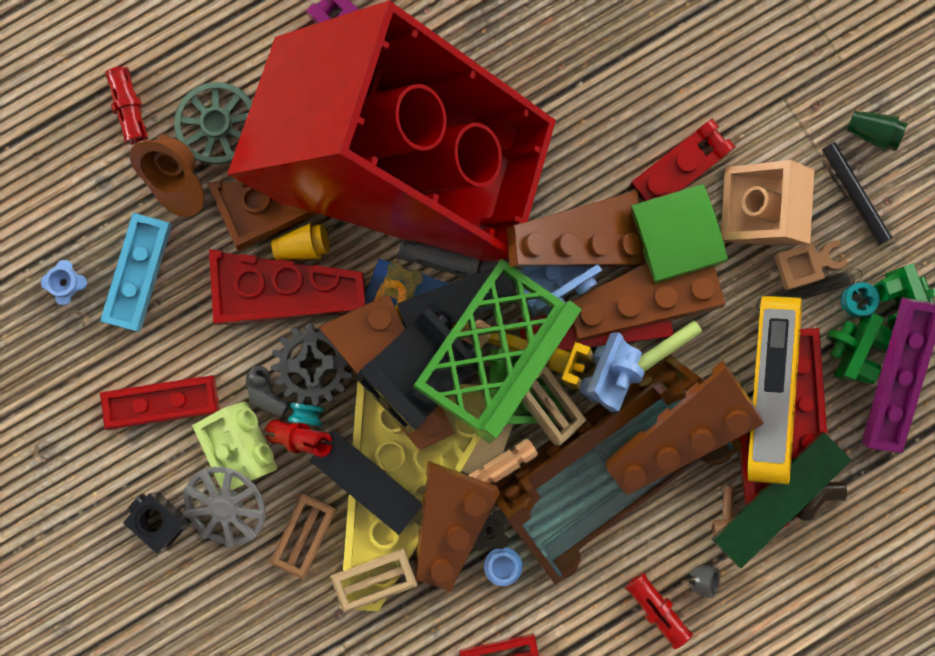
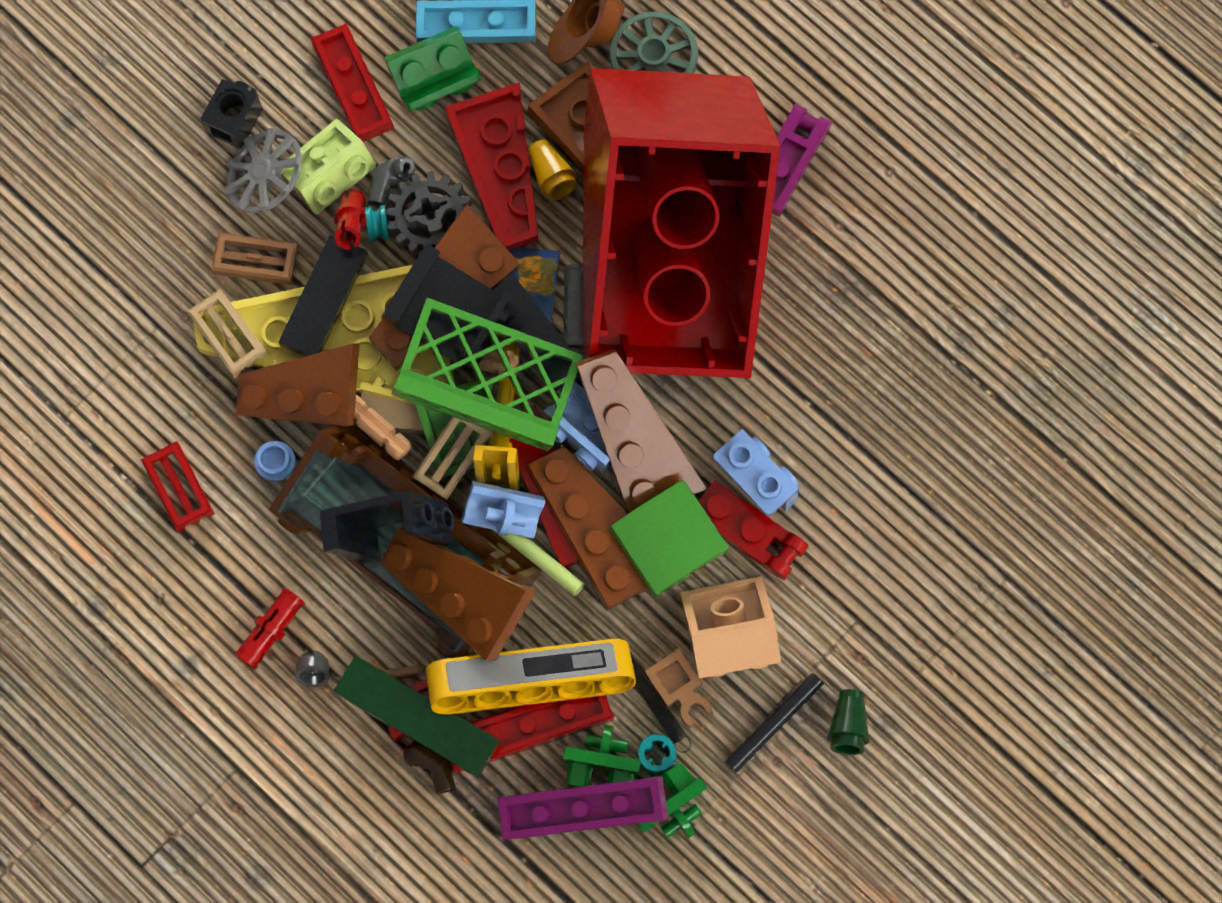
camera: 80 degrees right, 10 degrees down
(173, 324) = (432, 69): none -> green bracket
(497, 537) = (296, 432): dark brown plate -> none
(605, 512) = (352, 527): none -> black panel
(644, 141) = (751, 468): none -> light blue bracket

